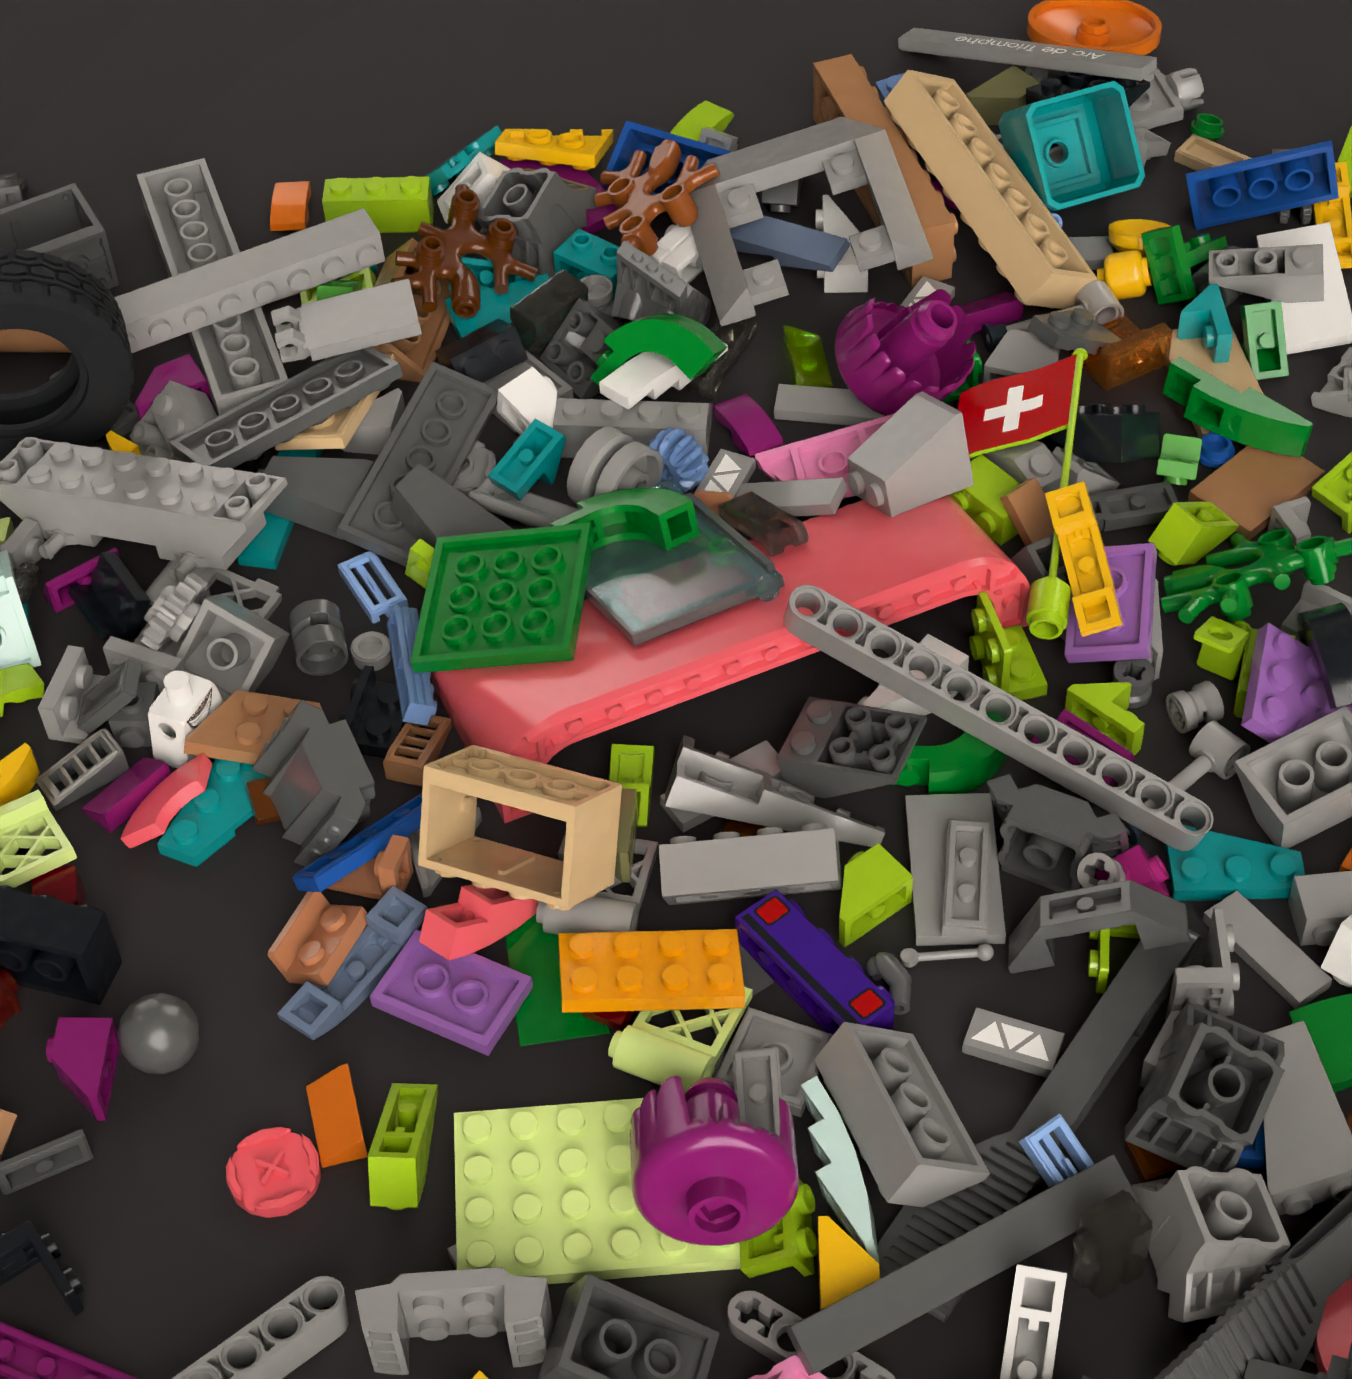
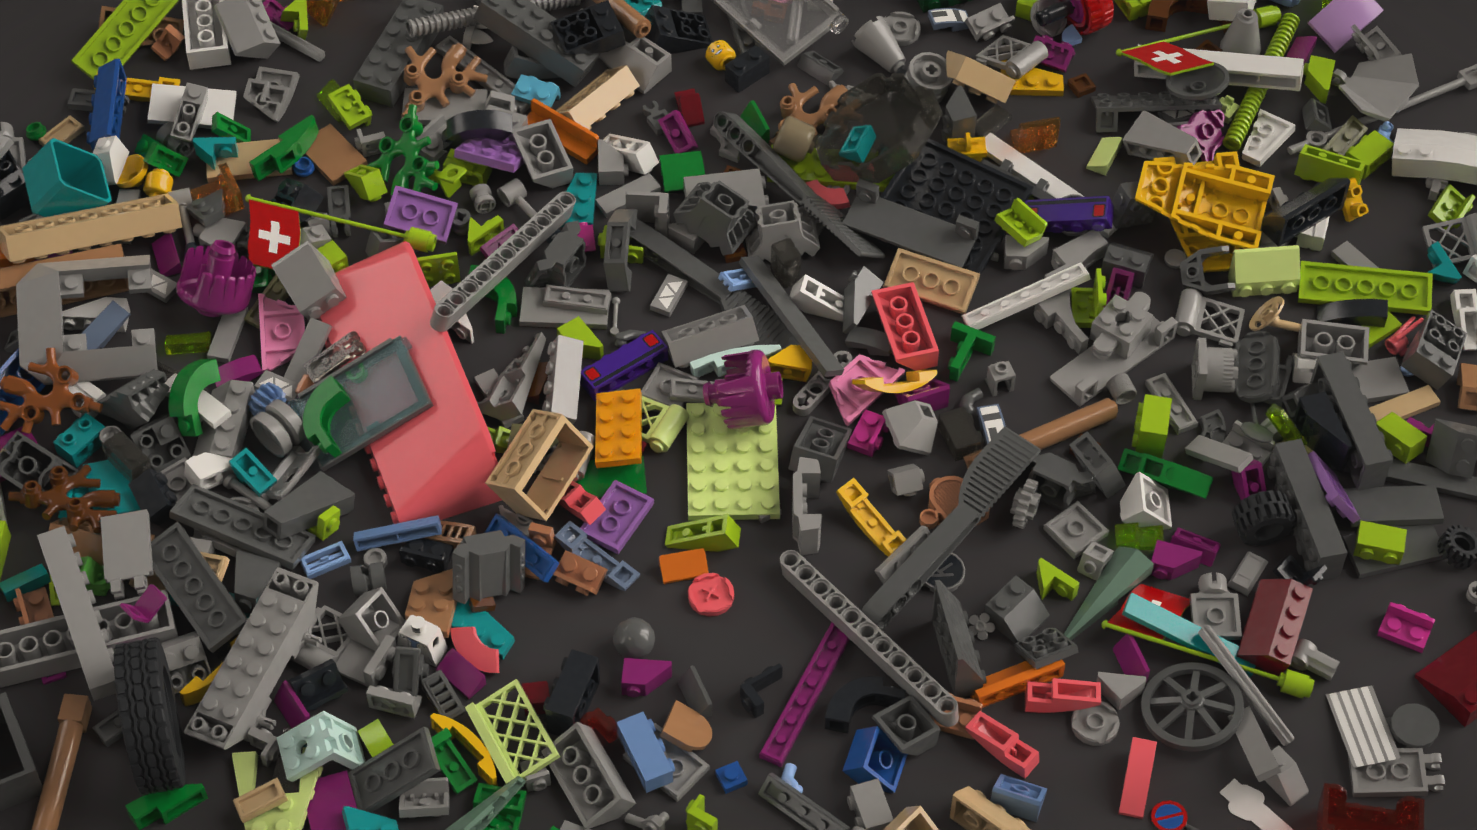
camera: 90 degrees left, 5 degrees up
(174, 613) = (352, 638): light grey gear -> none
(247, 355) = (146, 606): none -> magenta bracket
(503, 598) = (379, 470): green plate -> none
(847, 747) = (495, 333): dark grey slope -> none
(1029, 511) = (347, 243): medium nougat tile -> none
(1084, 559) = (401, 217): yellow slope -> none
(1101, 862) = (596, 240): light grey bush -> none
(1154, 203) = (113, 157): none -> white slope
(1179, 458) = (317, 181): bright green bracket -> none

